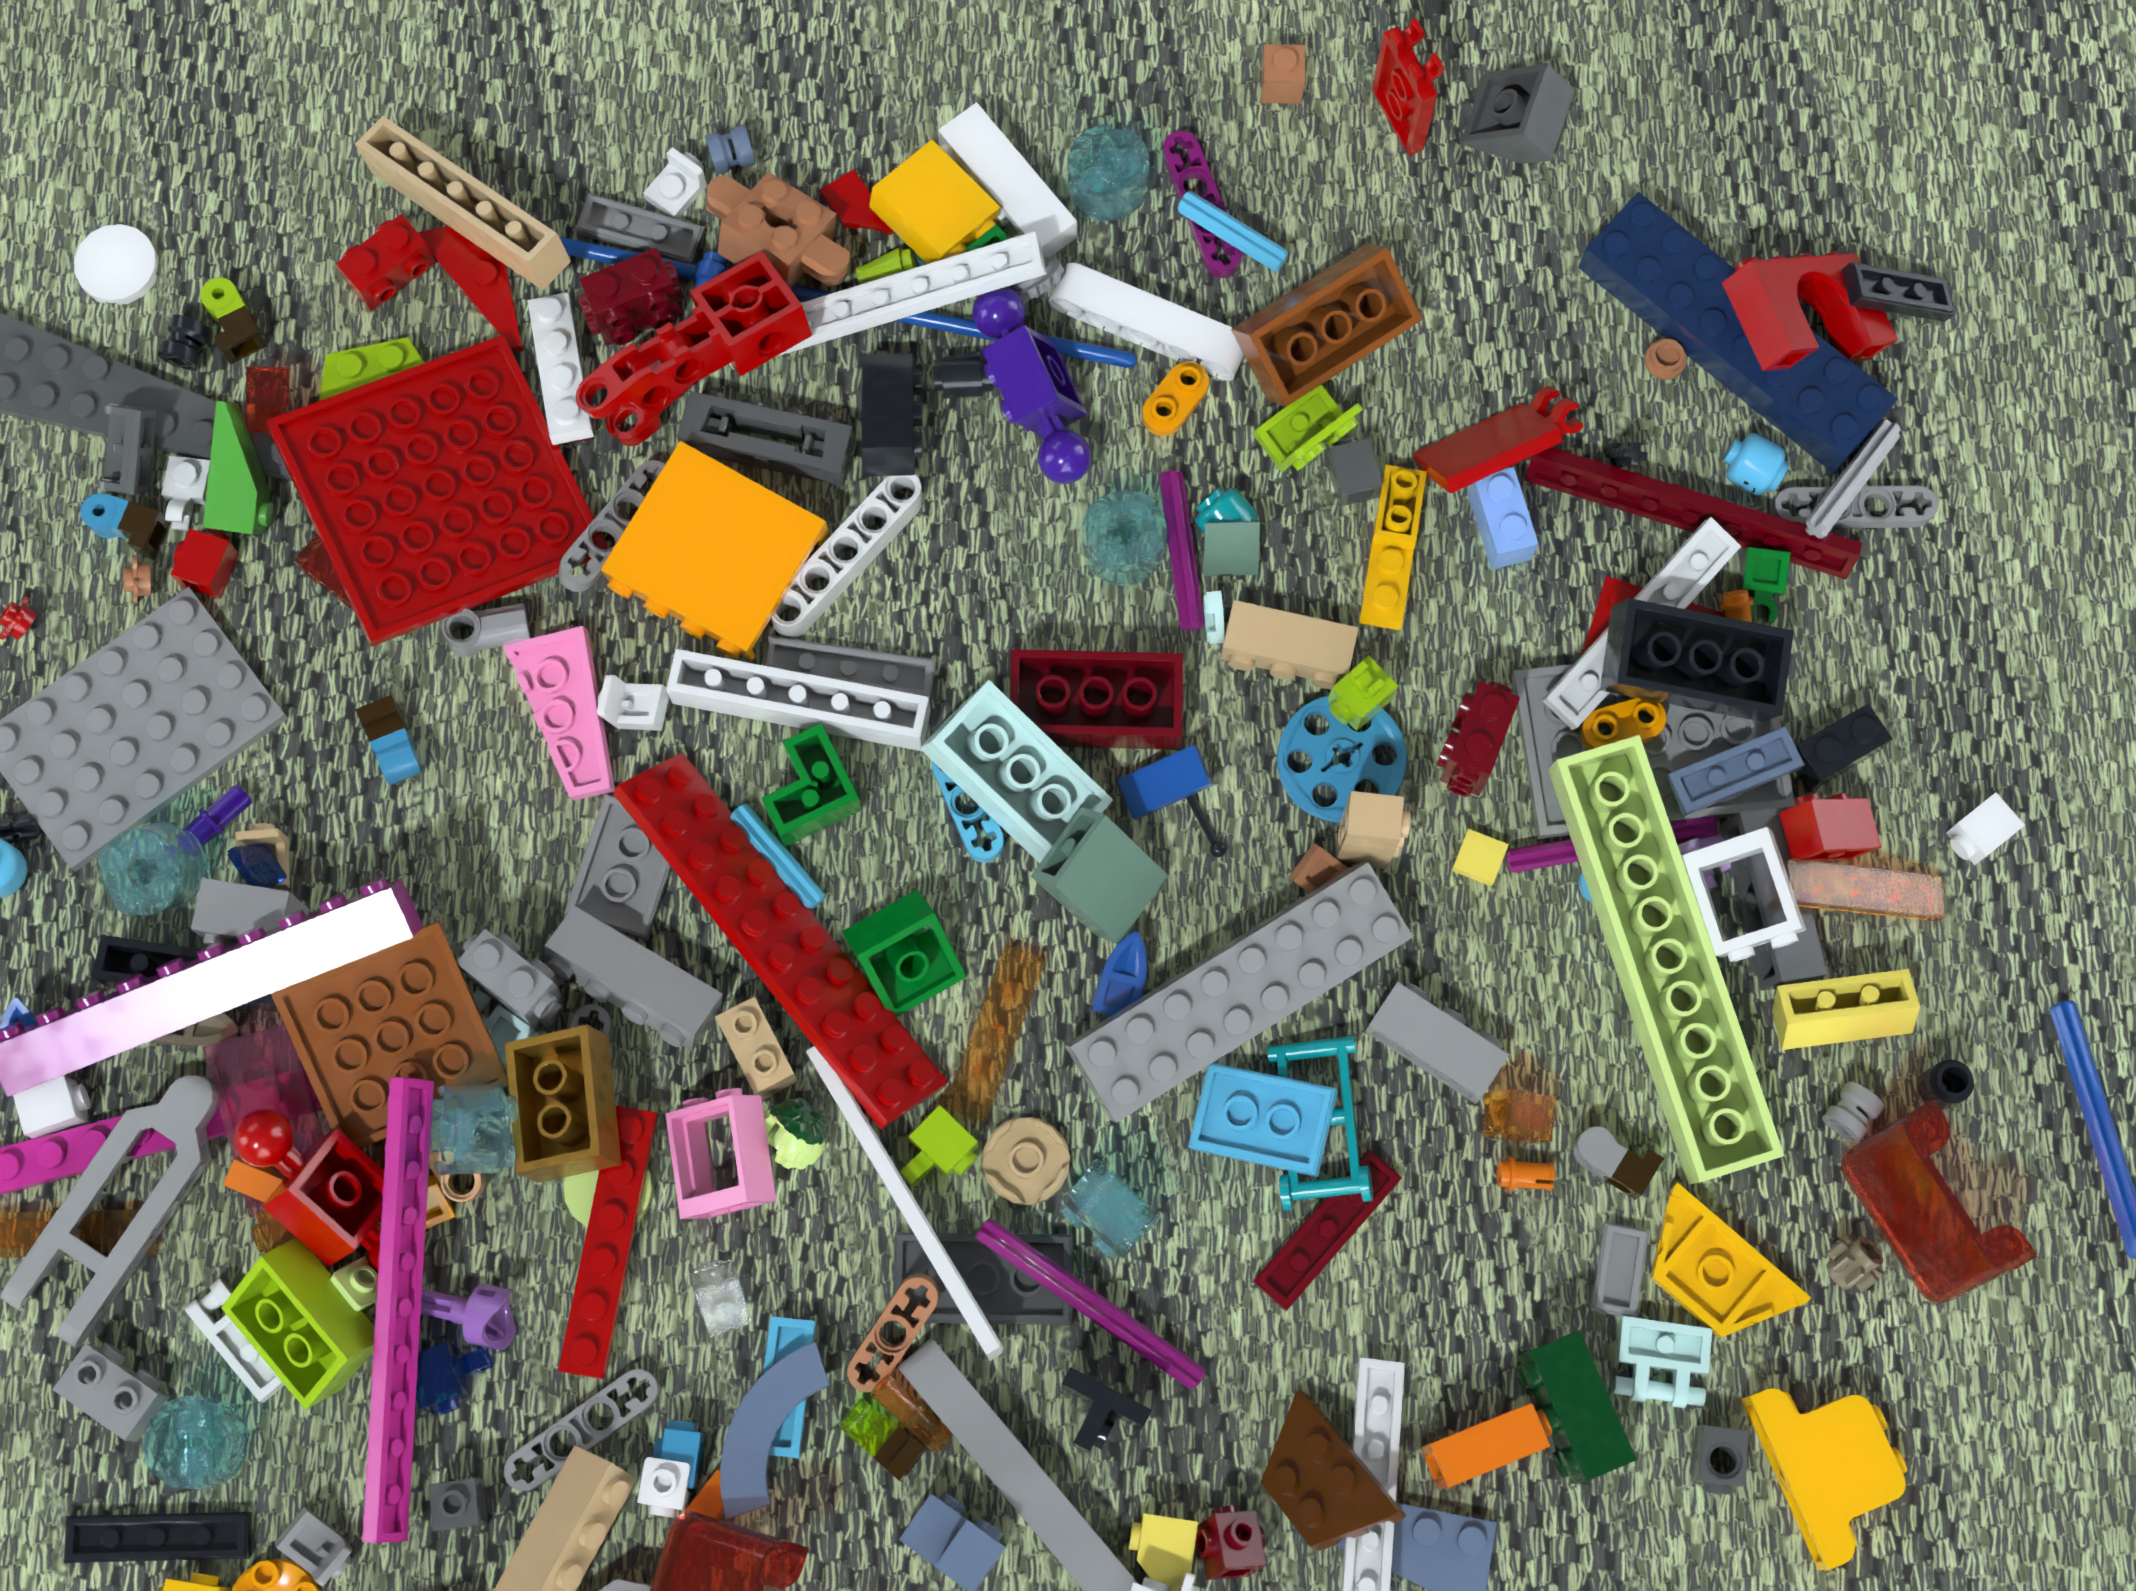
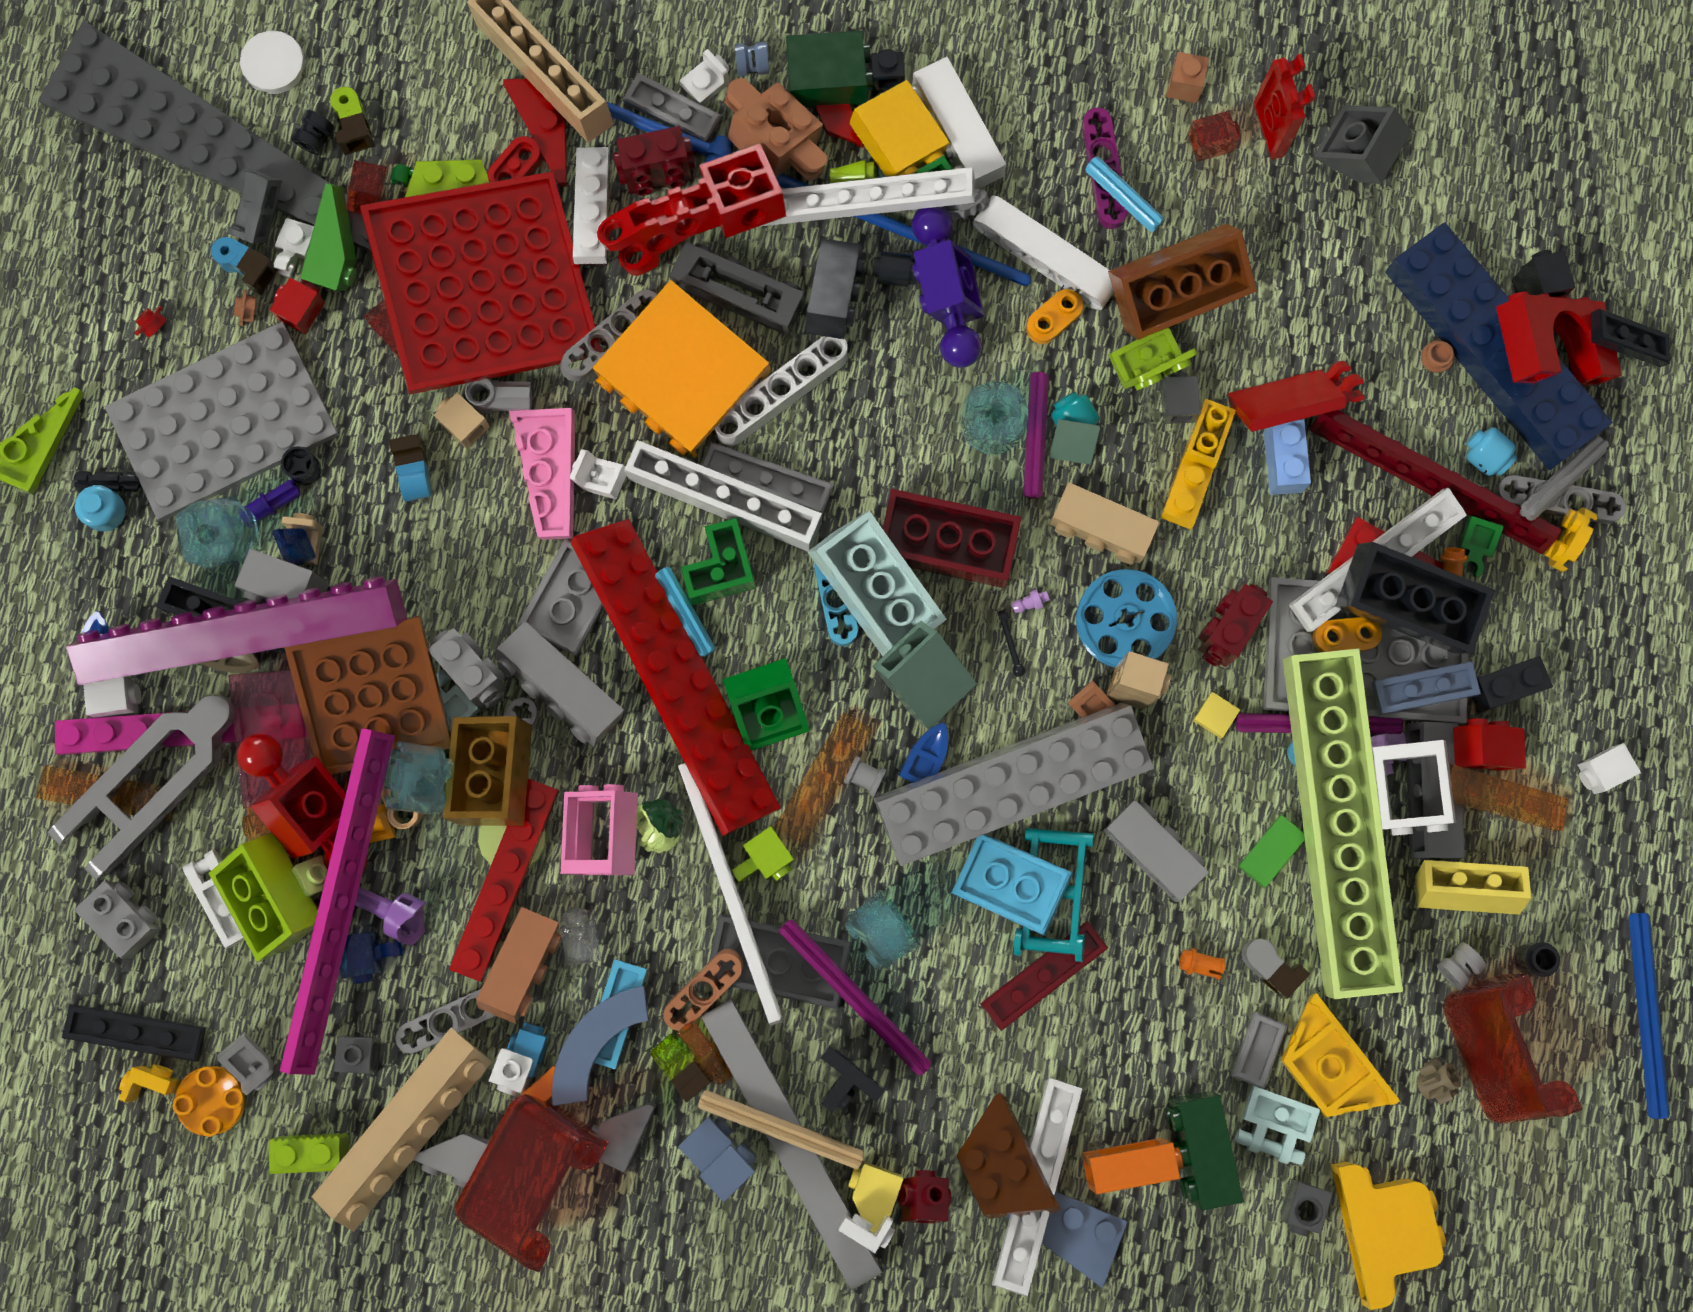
camera: 10 degrees right, 5 degrees up
(195, 1443) = (172, 970): clear light blue brick -> none
(240, 758) = (296, 461): none -> black wheel
(252, 1180) = (248, 785): orange piece -> none
(309, 374) = (402, 174): none -> green hand
(385, 262) = (474, 98): red brick -> none
(443, 668) = (461, 420): none -> tan brick
(446, 335) = (511, 164): none -> red plate
(649, 1348) = (519, 966): none -> nougat brick
(756, 1048) = (641, 755): tan brick -> none
(828, 1540) = (624, 1135): none -> flat silver slope
(830, 144) = (829, 68): none -> dark green brick
(902, 127) = (887, 65): none -> black brick
(1021, 1174) = (829, 890): tan tile -> none
(1028, 1489) = (781, 1129): none -> tan axle
(1048, 1020) = (865, 776): none -> light grey bush
(1108, 173) = (1037, 130): clear light blue brick -> none
(1165, 782) = (988, 611): blue tile -> none
(1213, 617) = (1050, 485): light aqua tile -> none
(1220, 757) = (1034, 600): none -> lavender piece
(1330, 139) = (1213, 135): none -> clear red brick
(1361, 694) = (1151, 573): lime brick -> none
(1518, 1116) = (1206, 920): clear orange brick -> none
(1585, 1015) = (1272, 851): none -> bright green tile
(1626, 454) = (1392, 426): black axle -> none
(1776, 232) = (1545, 274): none -> black brick
(1878, 551) = (1571, 539): none -> yellow plate

